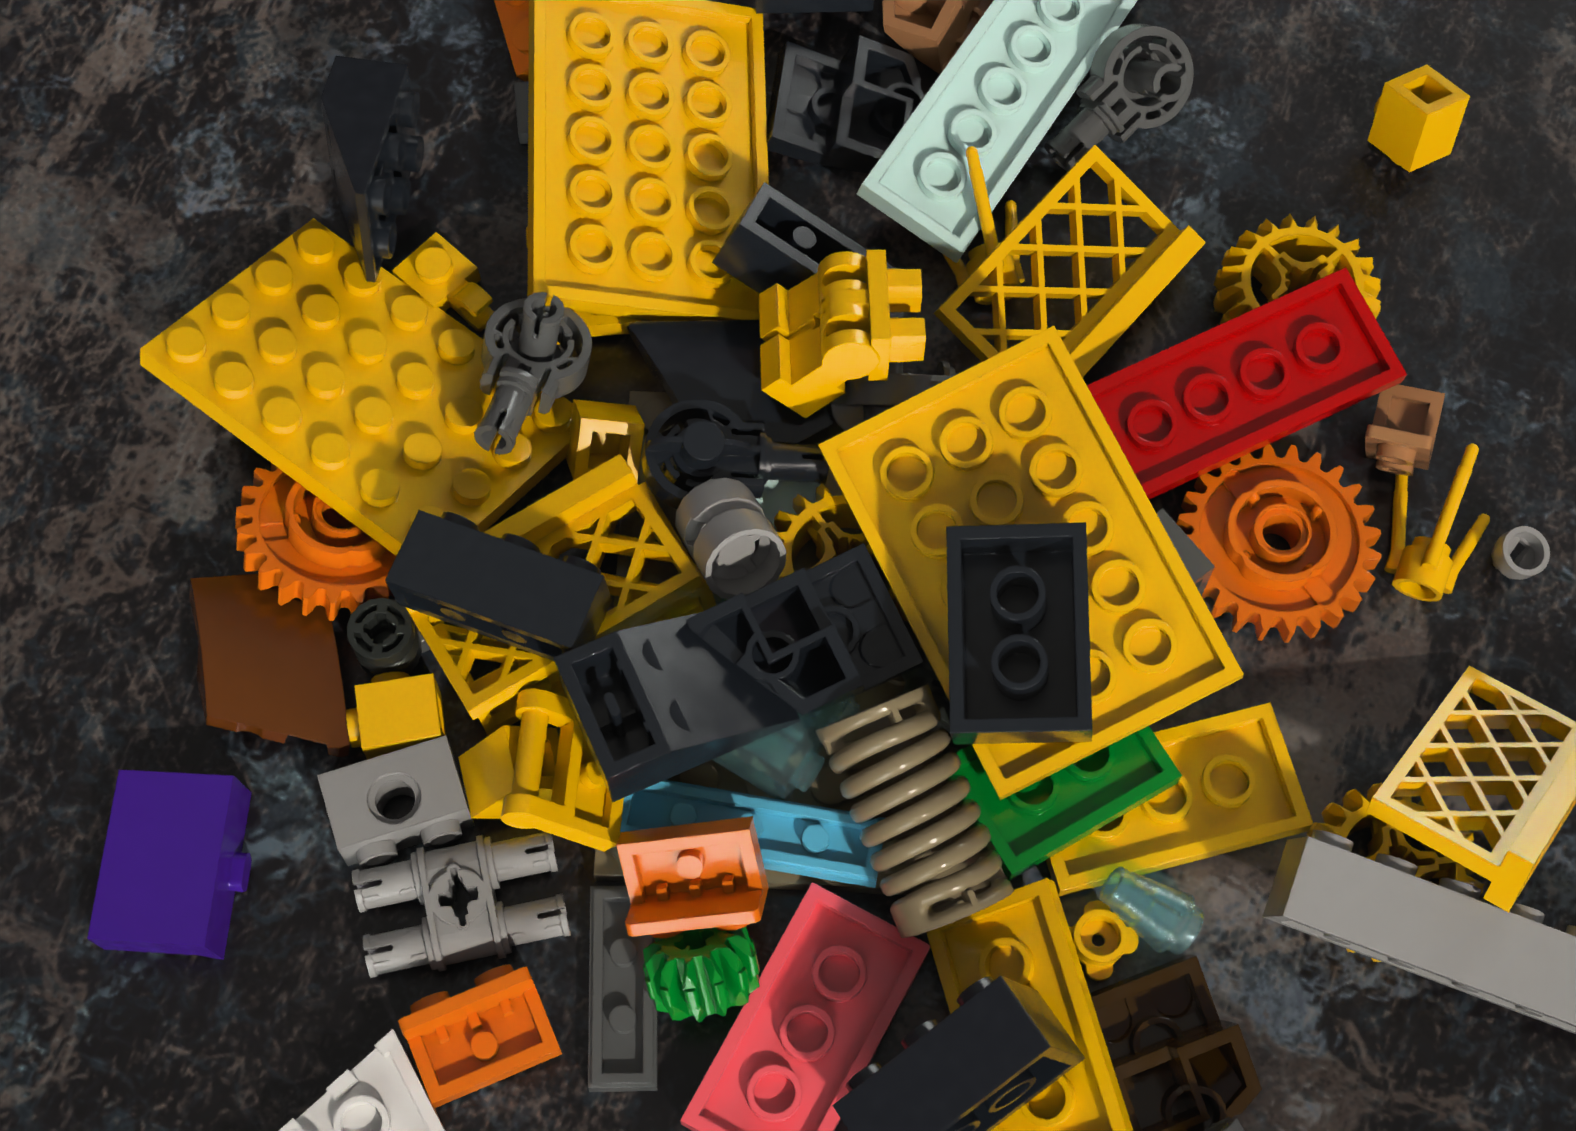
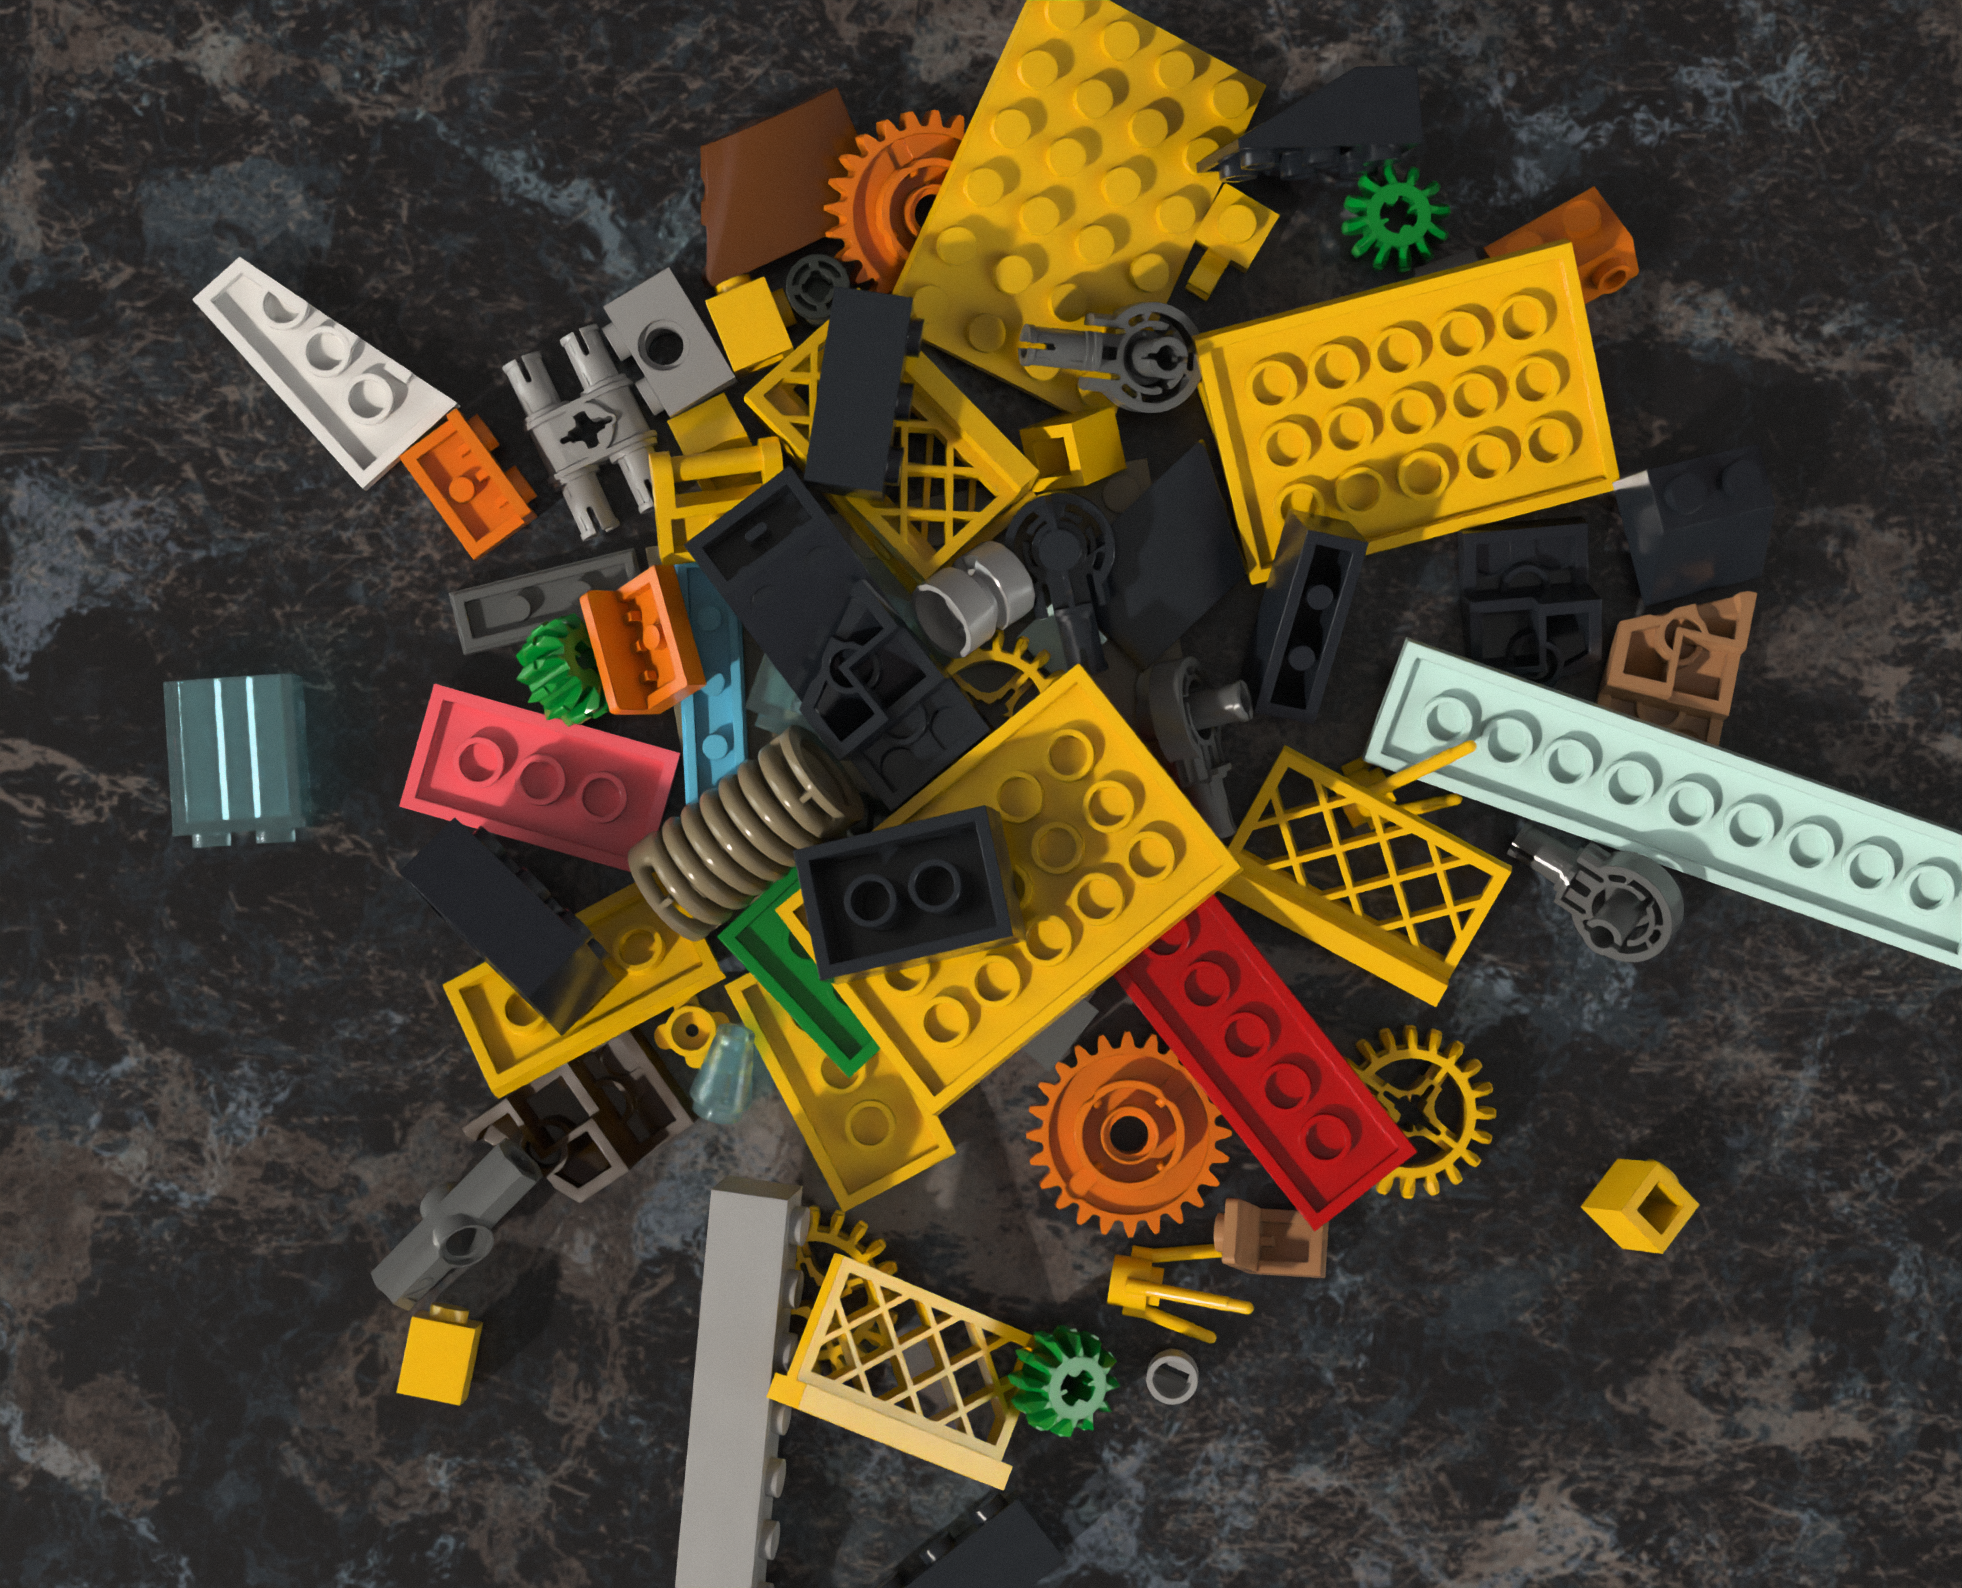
camera: 80 degrees right, 20 degrees up
(171, 863) = (566, 154): dark purple container -> none
(469, 136) = (1410, 237): none -> green gear
(838, 329) = (1216, 651): yellow hips -> none
(1515, 648) = (1087, 1380): none -> green gear

